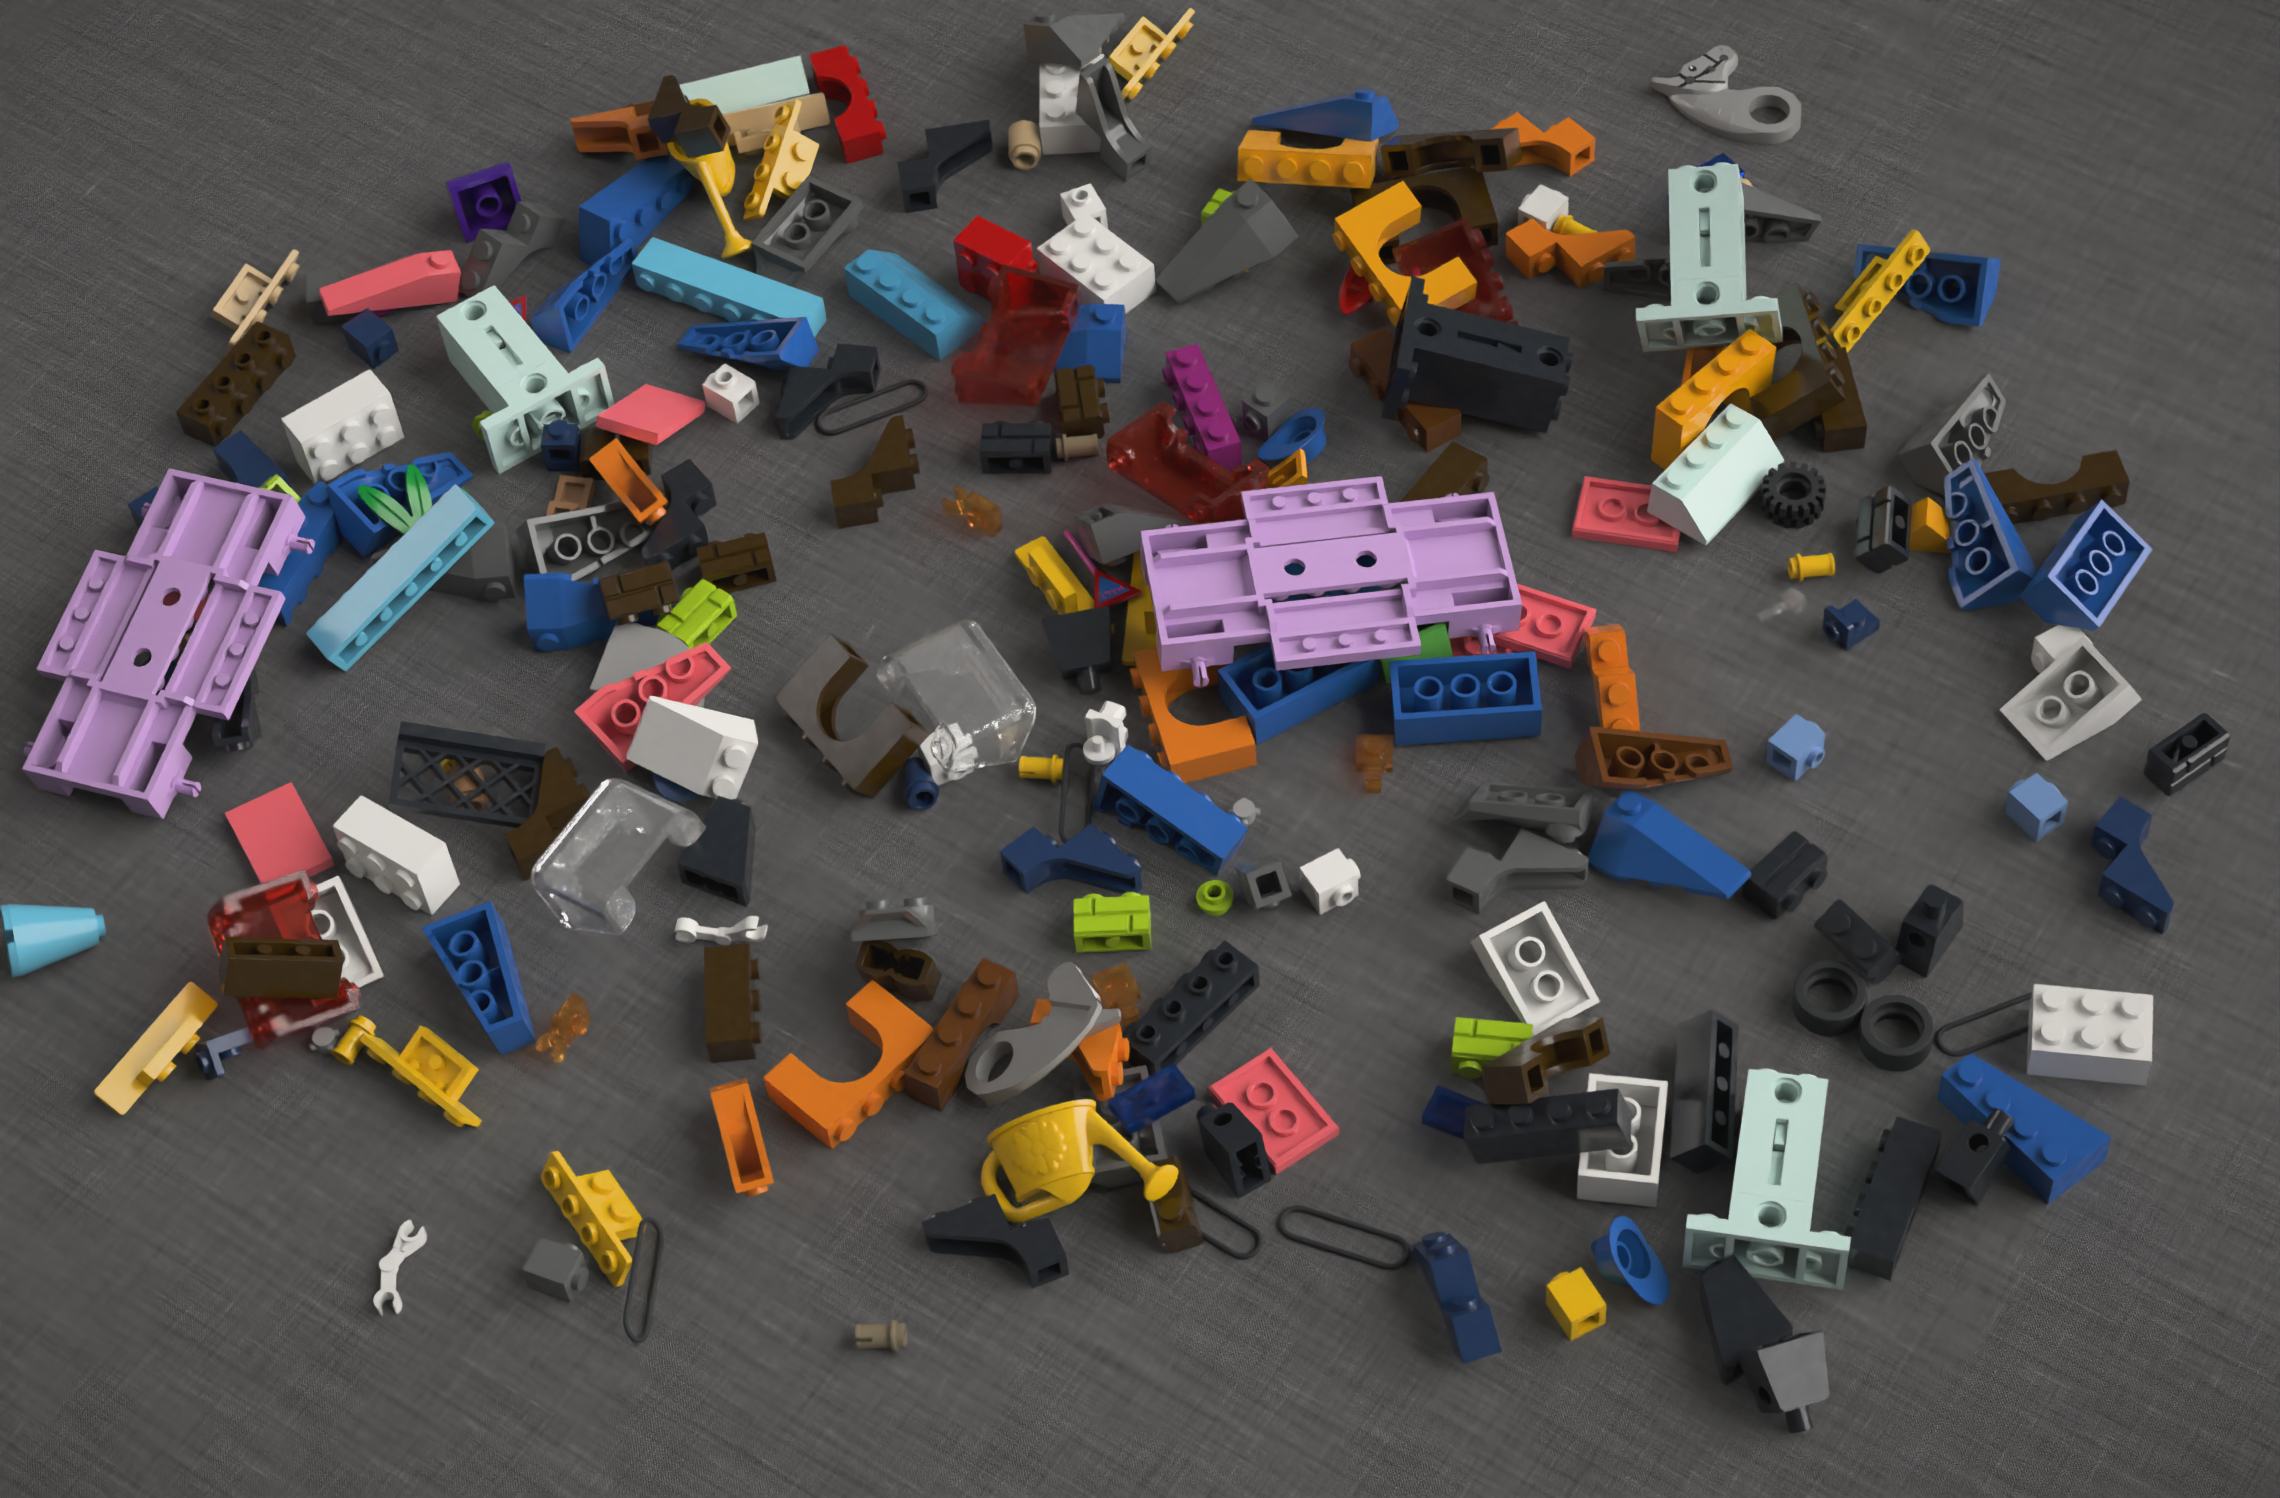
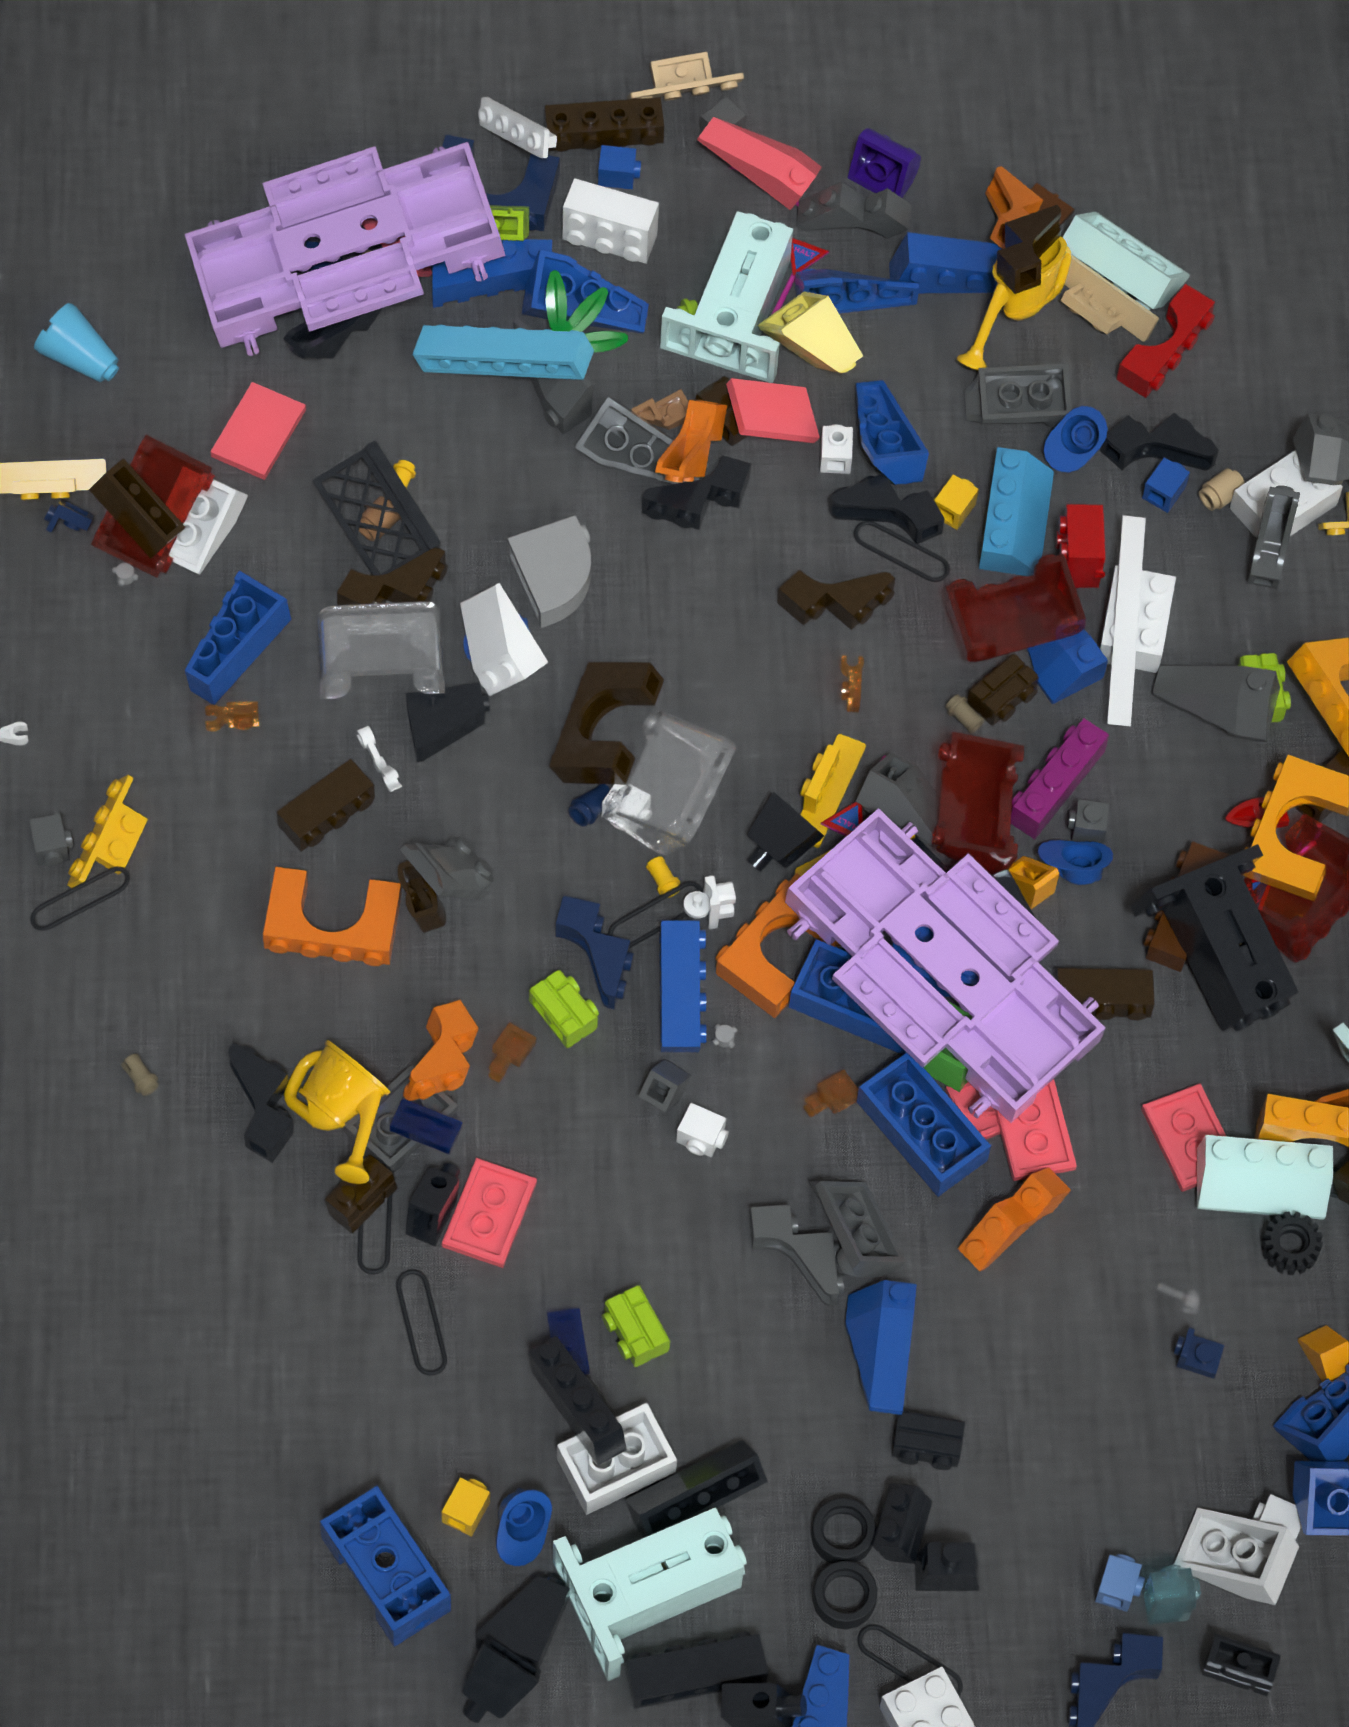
camera: 45 degrees right, 10 degrees up
(178, 443) = (515, 128): none -> white bracket
(288, 394) = (618, 167): none -> blue brick
(350, 1045) = (136, 591): yellow pin -> none
(370, 338) = (707, 180): dark blue brick -> none
(396, 855) = (284, 513): white brick -> none
(433, 1068) = (143, 655): yellow bracket -> none
(561, 437) = (706, 367): dark blue brick -> none
(568, 612) = (562, 483): blue wedge -> none
(610, 328) = (814, 332): none -> light yellow slope
(618, 707) = (526, 584): coral wedge -> none
(637, 592) = (601, 512): dark brown brick -> none
(699, 615) = (622, 565): lime brick -> none
(721, 287) = (926, 382): medium azure brick -> none
(737, 562) = (689, 557): dark brown brick -> none
(742, 1137) = (213, 895): orange arch -> none
(784, 164) = (1069, 340): yellow bracket -> none
(863, 329) = (956, 500): none -> yellow brick
(885, 212) = (1075, 439): none -> blue piece
(941, 1060) = (437, 965): reddish brown arch -> none
(984, 179) = (1166, 484): none -> blue brick
(1016, 447) = (931, 673): black brick -> none
(1041, 1047) = (418, 1028): light grey animal -> none
(1082, 201) = (1190, 571): white brick -> none
(1100, 267) = (1126, 621): none -> white sticker
(1192, 1008) = (527, 1106): black brick -> none
(1218, 905) = (633, 1070): lime plate -> none
(1455, 1288) = (420, 1418): dark blue arch -> none
(1523, 1071) = (663, 1373): dark brown arch -> none
(1535, 968) = (723, 1315): white slope -> none
(1638, 1403) = (406, 1593): none -> blue plate
(1647, 759) = (956, 1281): reddish brown wedge -> none
(1796, 747) = (1051, 1381): medium blue brick -> none
(1810, 566) = (1232, 1295): yellow pin -> none
(1883, 530) = (1299, 1327): black brick -> none
(2082, 766) = (1170, 1595): none -> clear light blue brick

